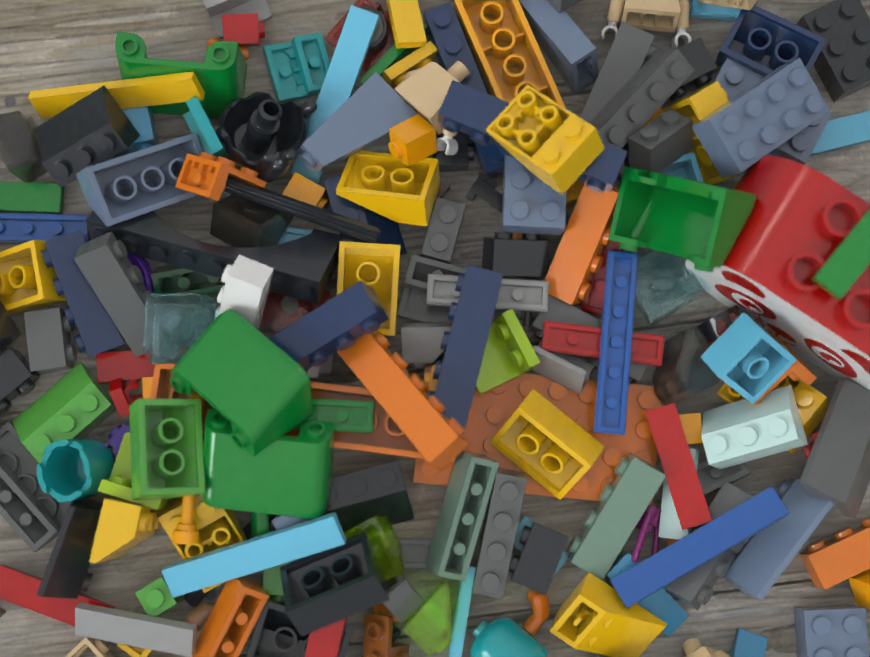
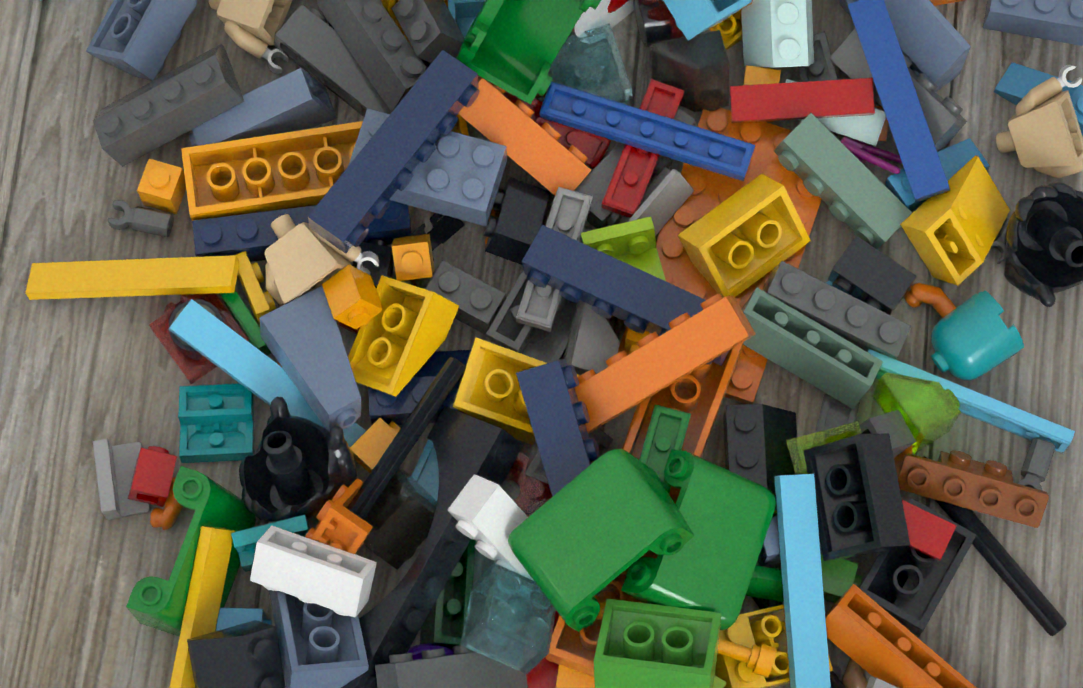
camera: 75 degrees left, 10 degrees down
(175, 165) = (313, 571): none -> white brick
(463, 181) = (413, 257): none -> light orange brick
(546, 138) = (406, 128): yellow slope -> none

